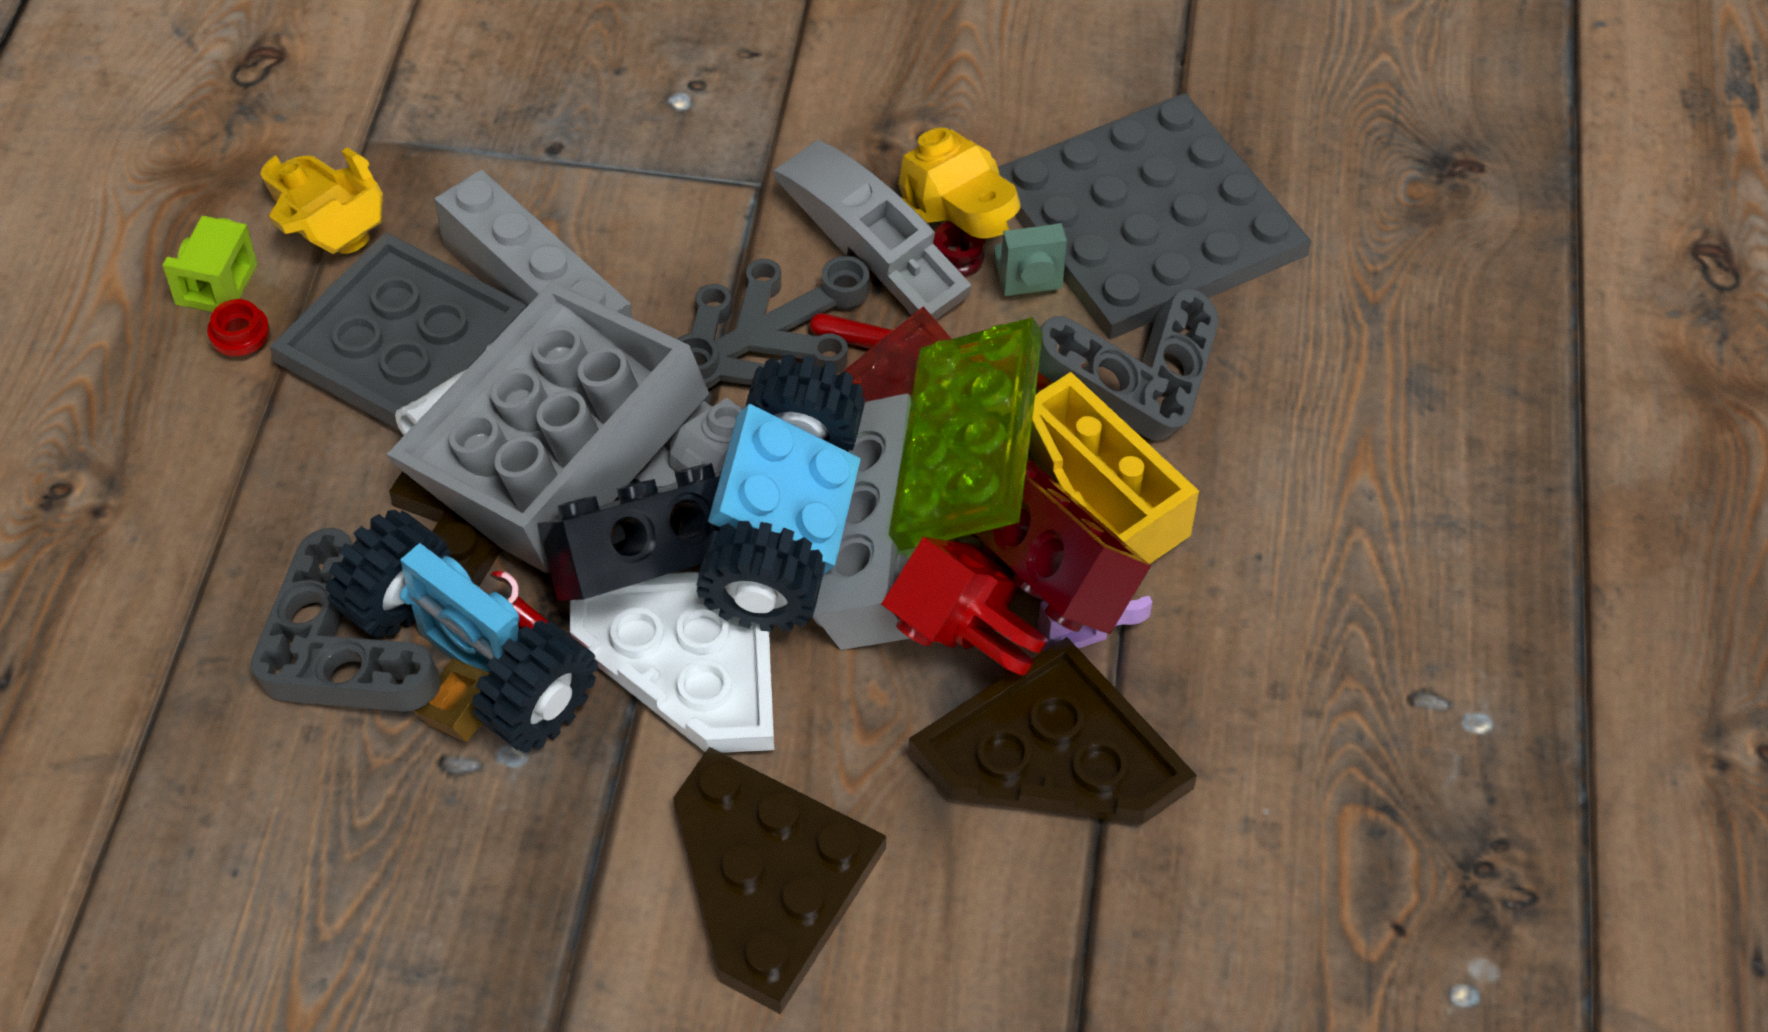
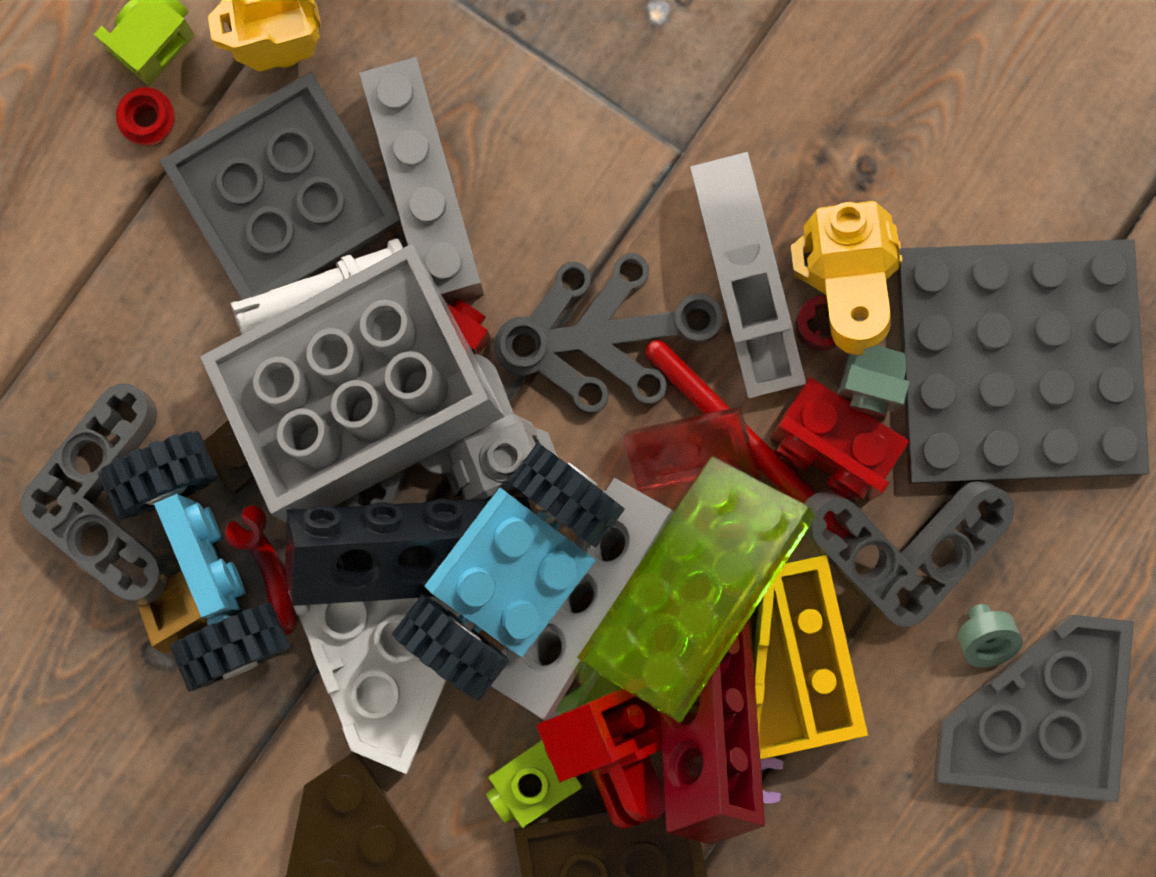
camera: 30 degrees right, 30 degrees up
(906, 691) = (509, 800): none -> lime brick
(1010, 296) = (839, 442): none -> red bracket
(1258, 406) = (989, 637): none -> sand green tile
(1351, 450) = (1047, 717): none -> dark grey plate

